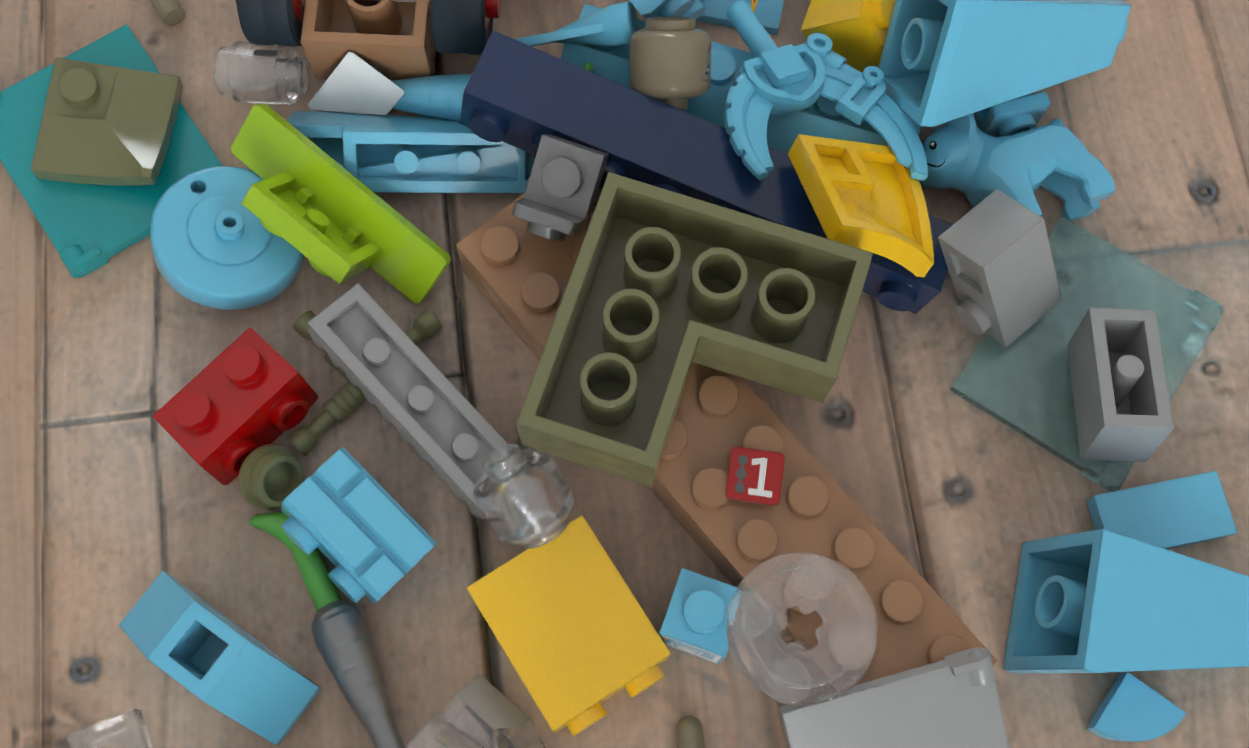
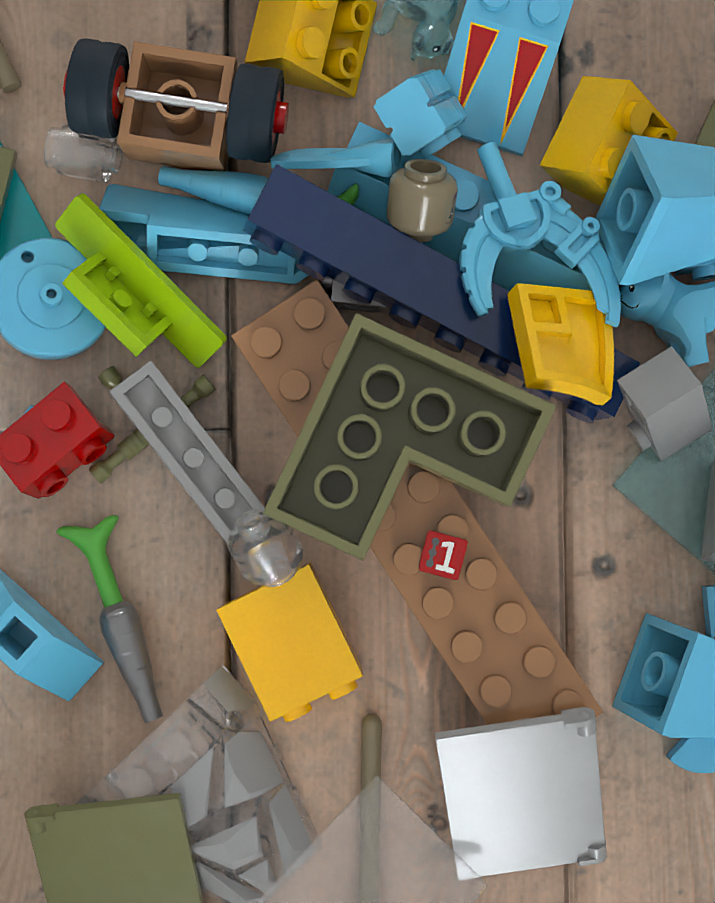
camera: 10 degrees right, 15 degrees up
(269, 476) = (75, 501): olive plate -> none
(355, 528) = (137, 553): medium azure brick -> none
(356, 89) = (161, 177): white sticker -> none
(561, 188) = (318, 309): flat silver bracket -> none
(698, 616) = (390, 648): medium azure brick -> none
(789, 667) = (447, 707): clear brick -> none

